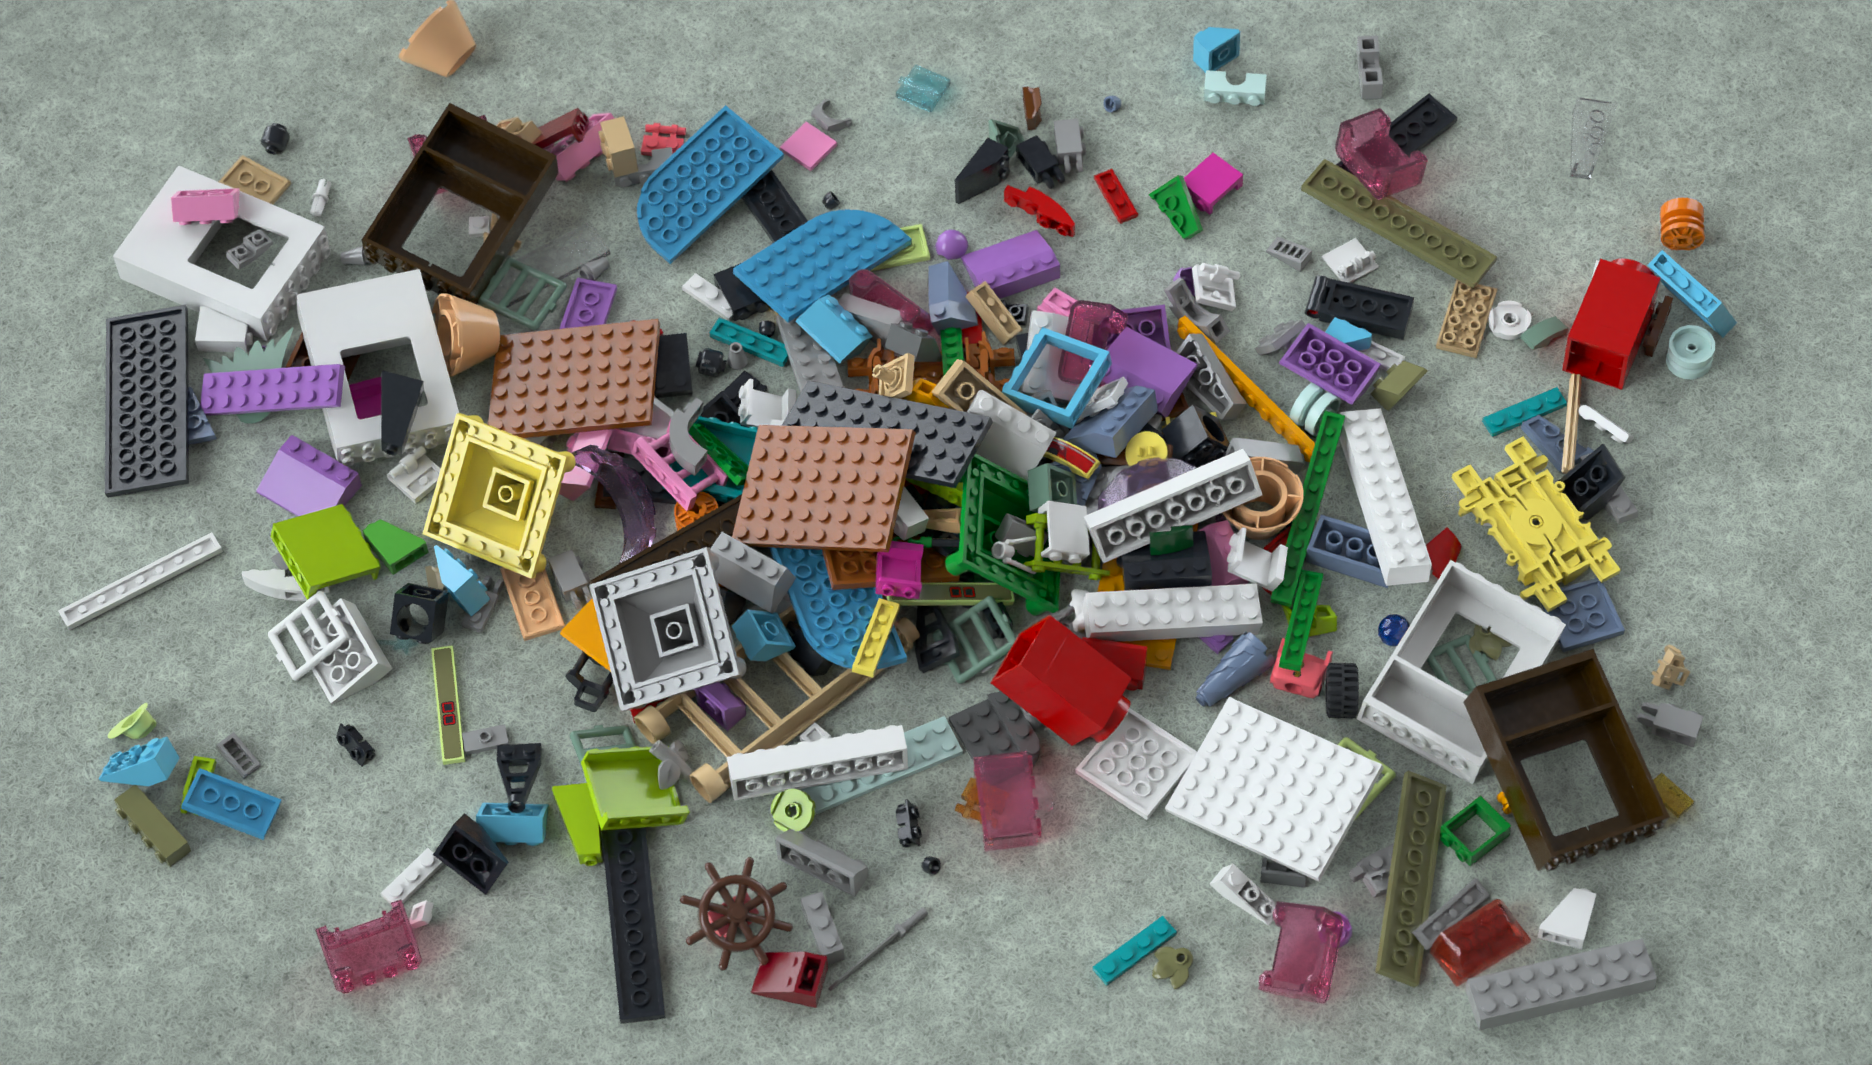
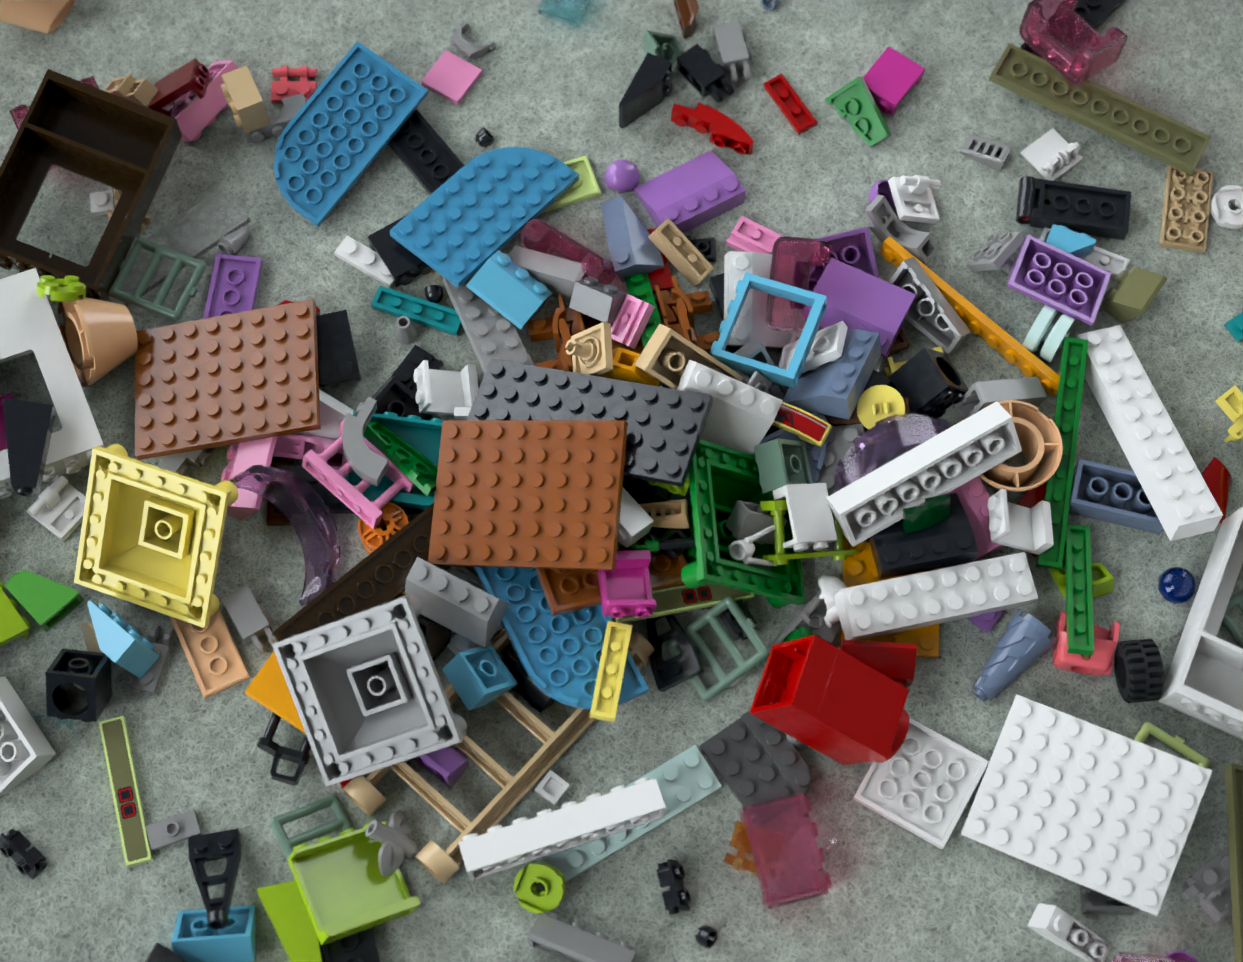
camera: 10 degrees left, 10 degrees up
(445, 288) = (61, 289): none -> lime plate
(710, 362) = (377, 339): black head -> none
(936, 361) = (631, 321): none -> bright pink plate

